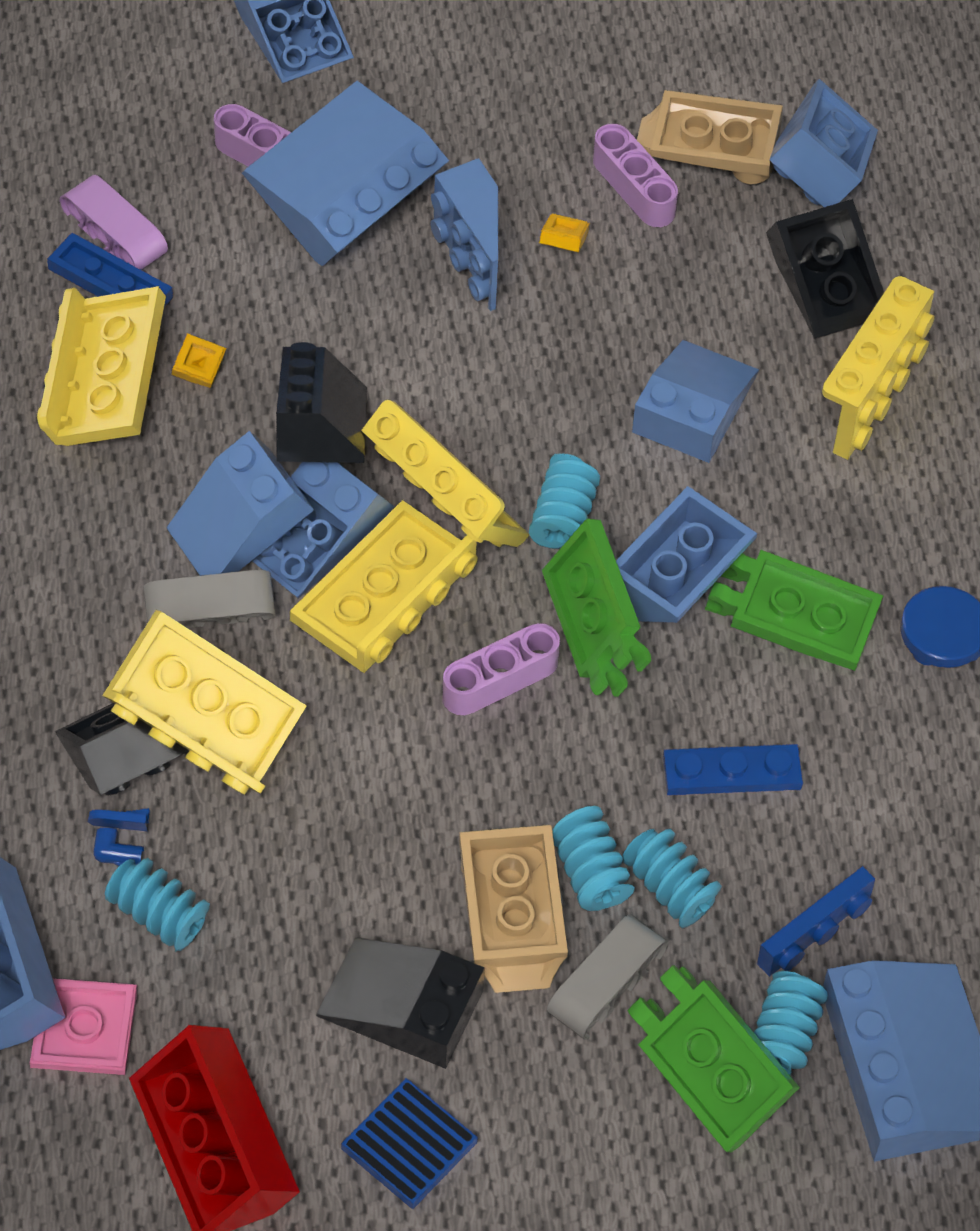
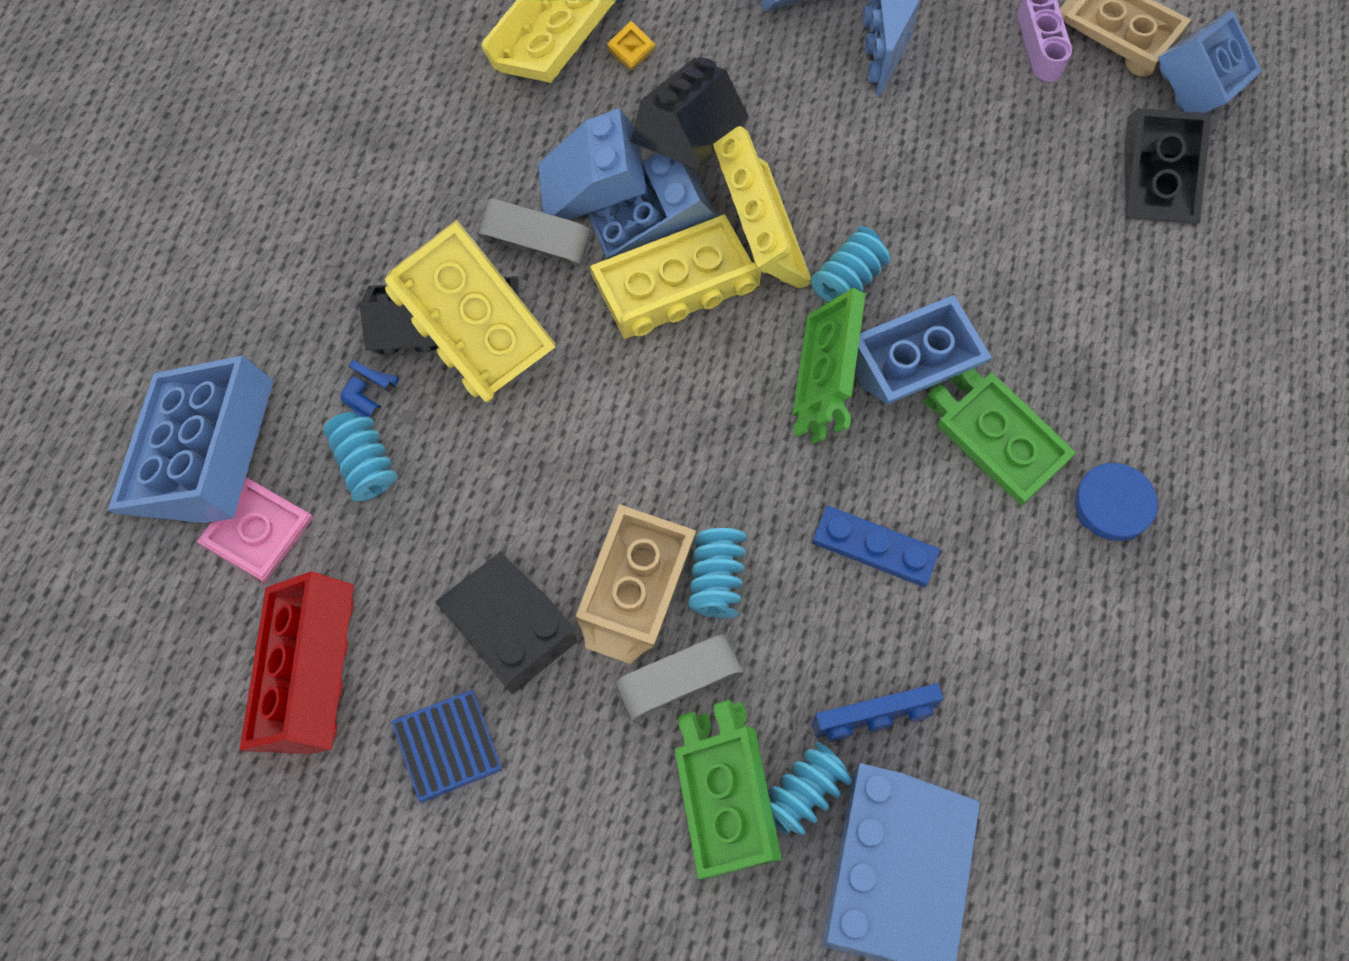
camera: 25 degrees right, 10 degrees up
(510, 653) = (743, 371): lavender beam -> none
(564, 232) = (964, 55): yellow tile -> none
(670, 876) = (775, 616): medium azure piece -> none
(692, 400) = (999, 226): medium blue slope -> none
(879, 361) = (1168, 255): light yellow bracket -> none

